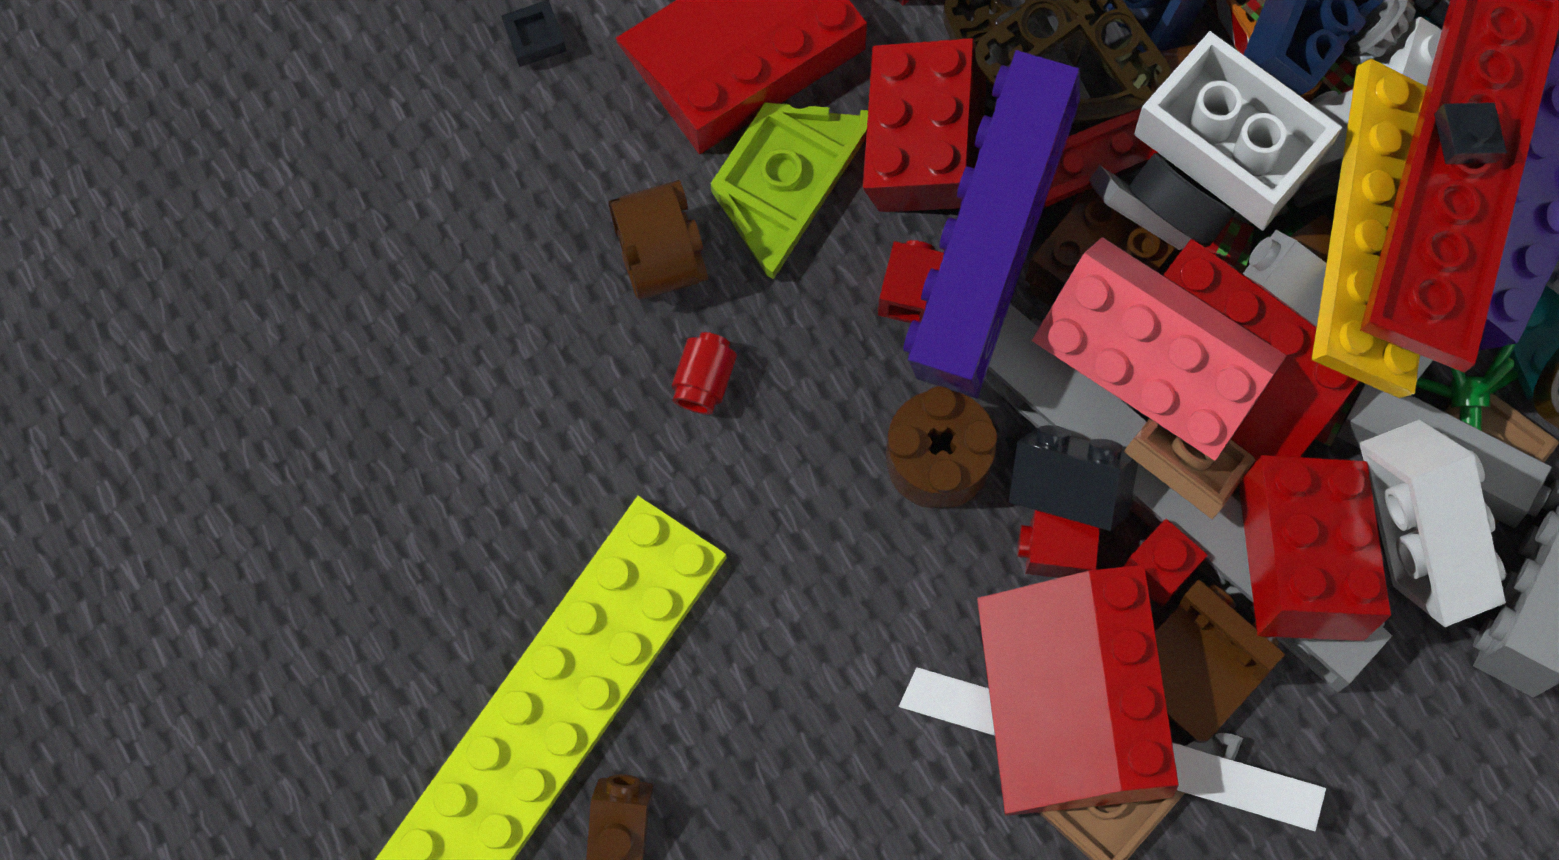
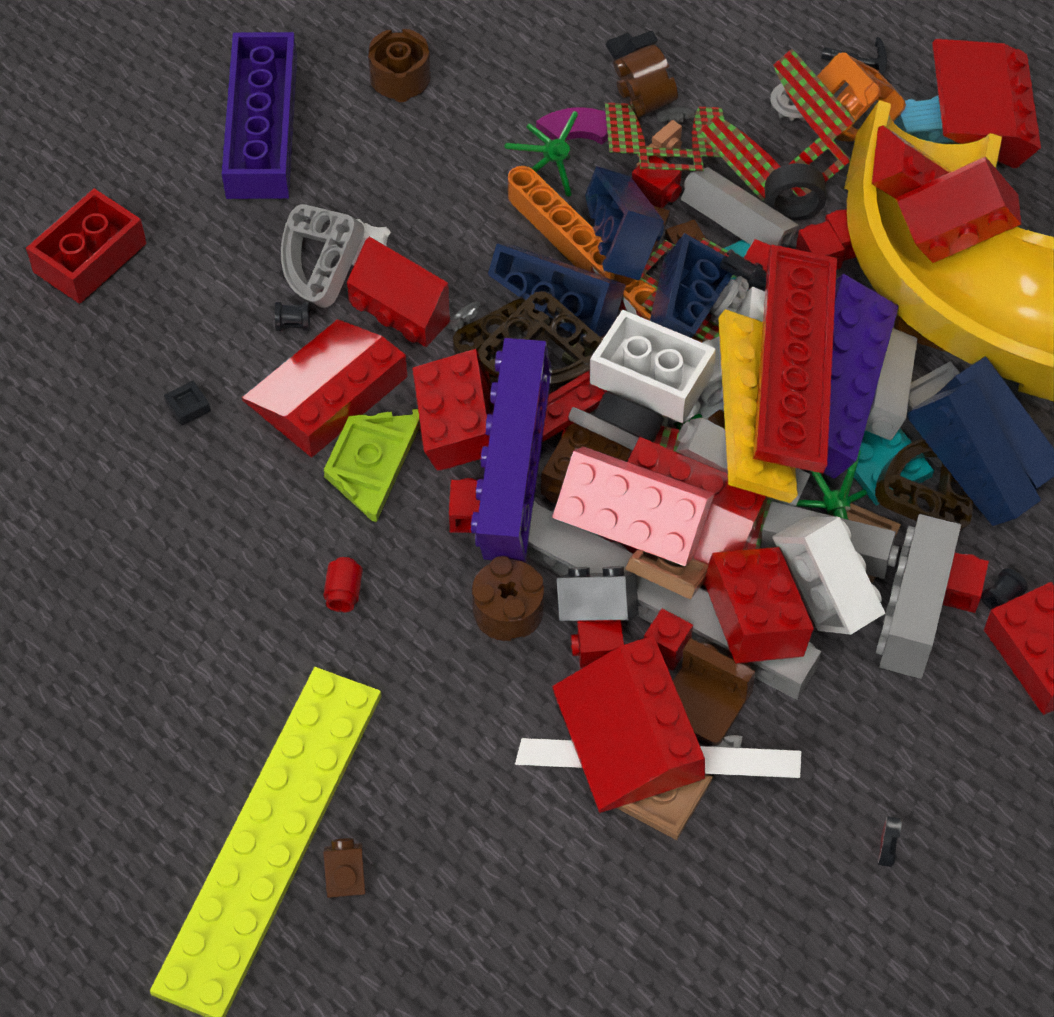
camera: 15 degrees left, 15 degrees down
(658, 240) = (296, 507): reddish brown brick -> none
(1470, 133) = (794, 337): black plate -> none

